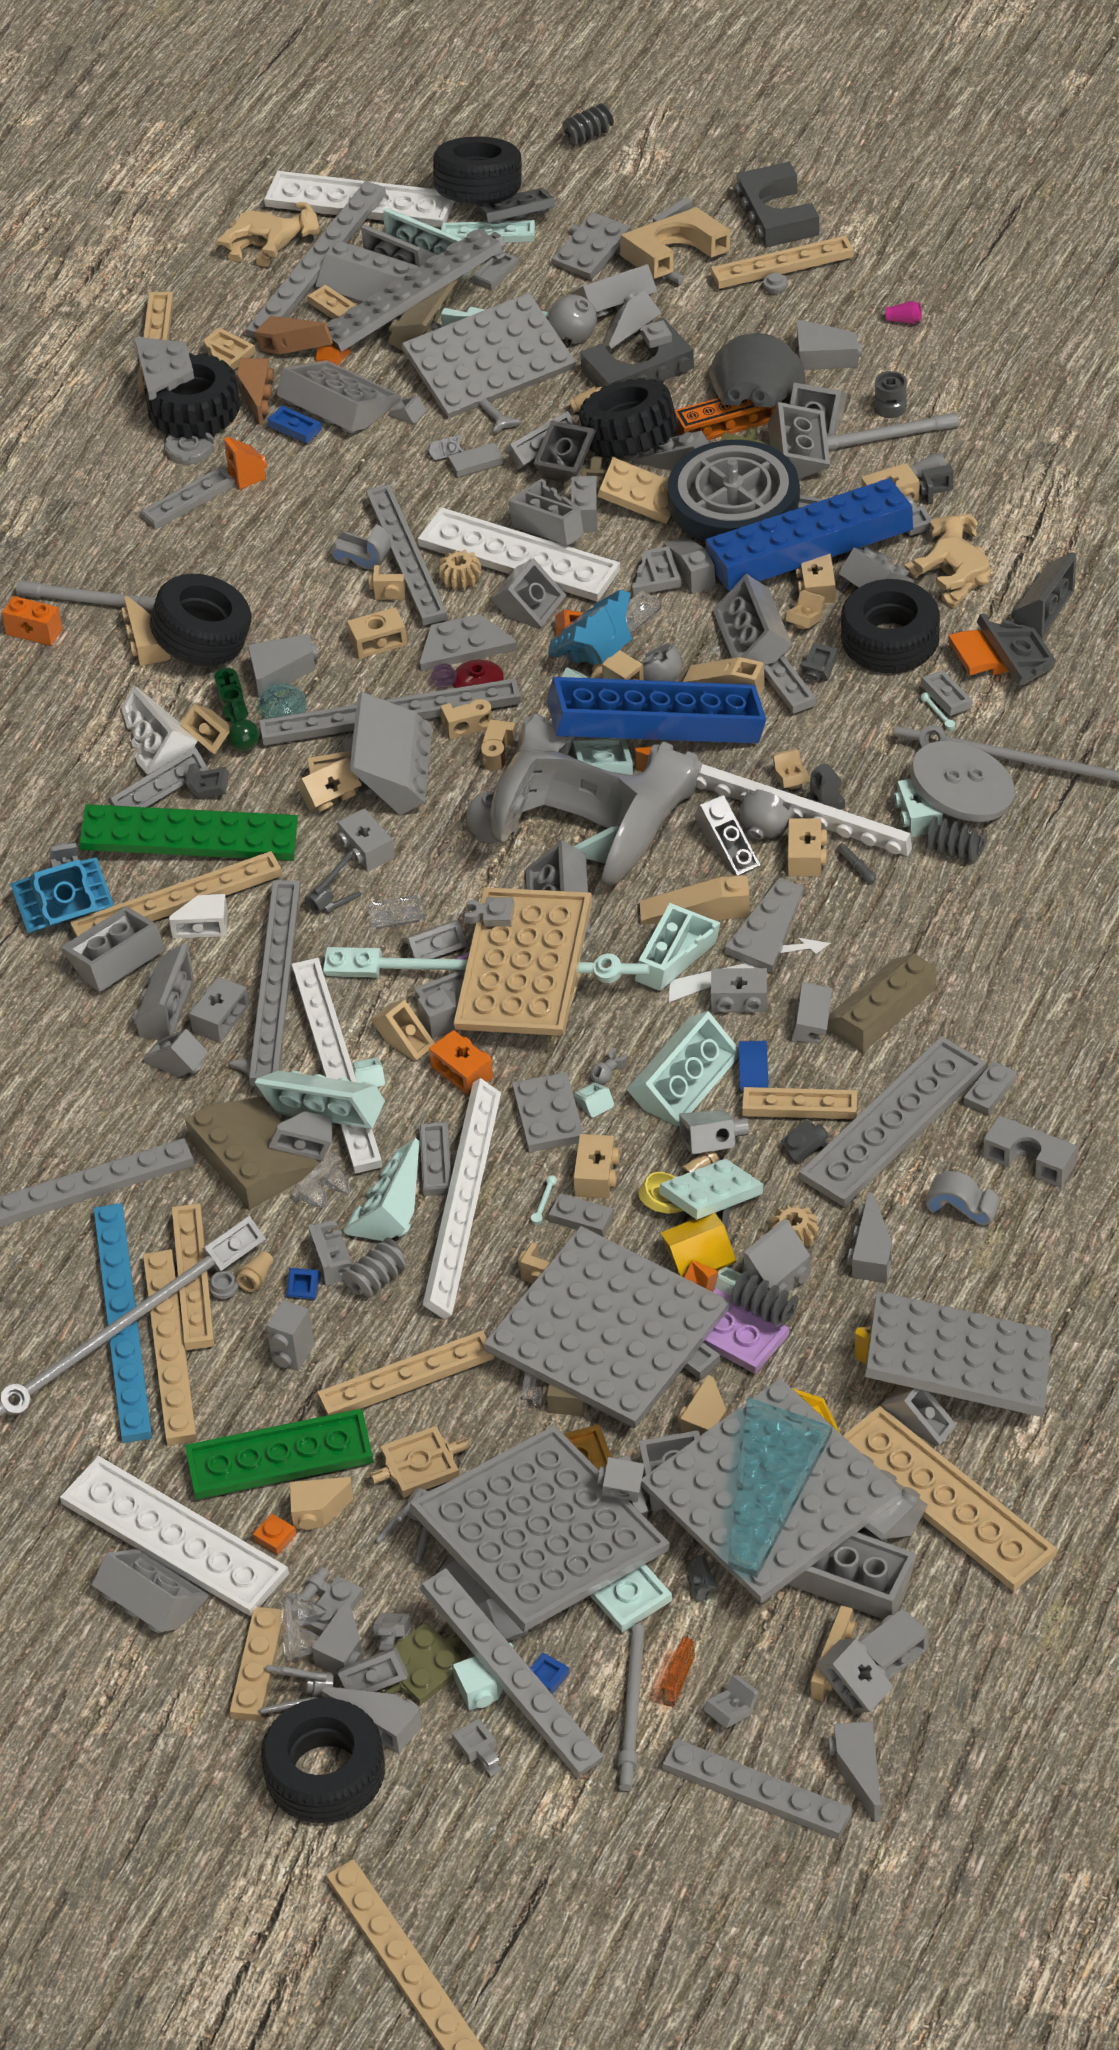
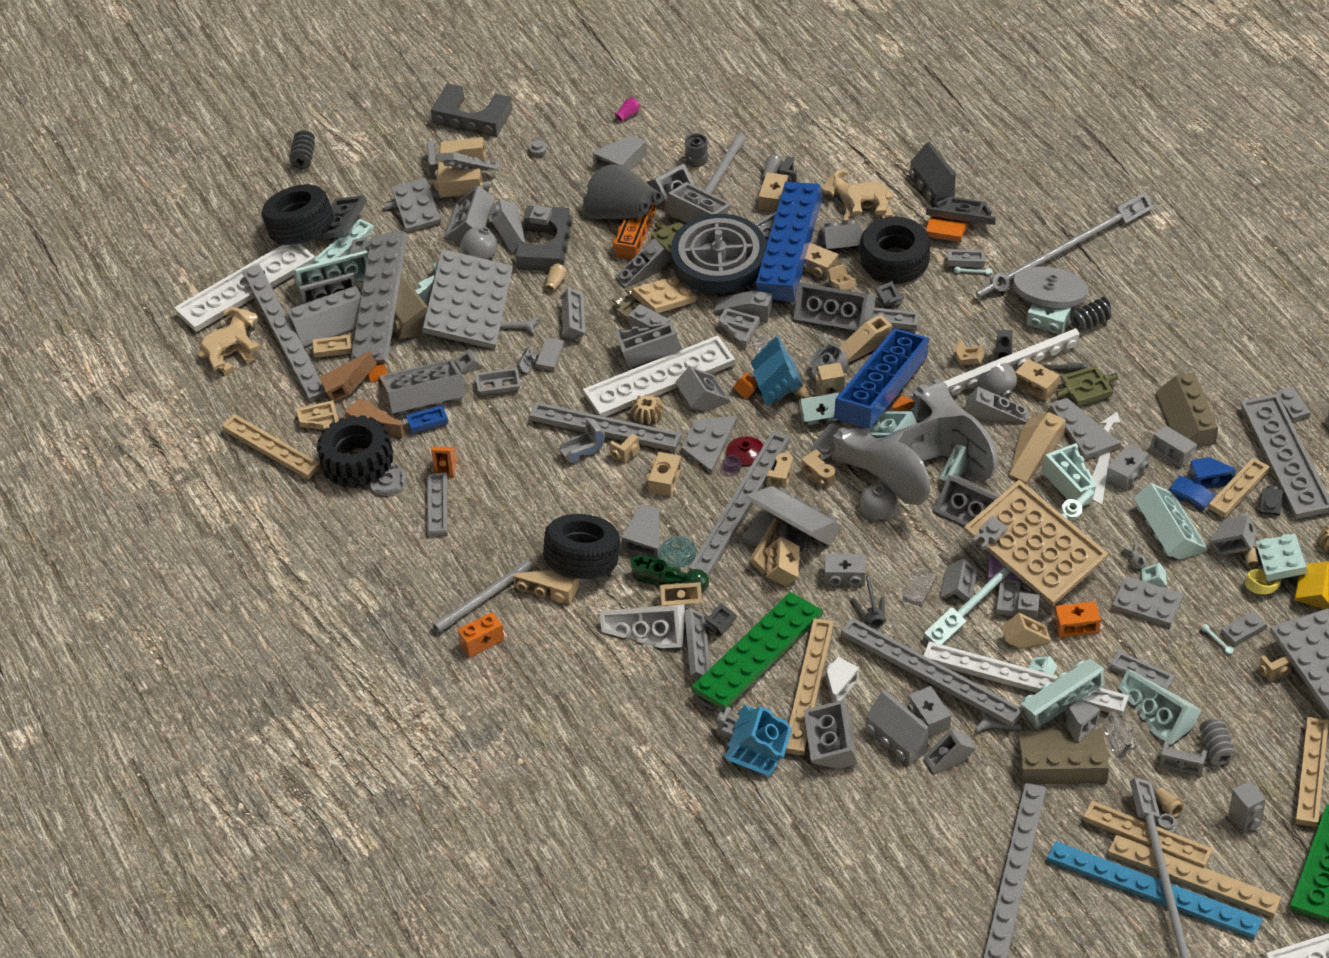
camera: 55 degrees left, 0 degrees up
(163, 364) = (324, 444): light grey wing -> none
(303, 1283) = (1193, 785): blue slope -> none
(404, 442) = (497, 377): none -> light grey piece
(461, 1199) = (1195, 678): white plate -> none
(563, 450) = (604, 305): flat silver slope -> none
(595, 1166) = (1214, 601): tan brick -> none
(629, 417) = (612, 277): black tyre -> none
(670, 239) = (463, 162): none -> light grey wing
(782, 262) = (524, 135): tan plate -> none
(792, 1063) = (1210, 472): none -> blue slope
(839, 894) = (1087, 385): none -> olive plate

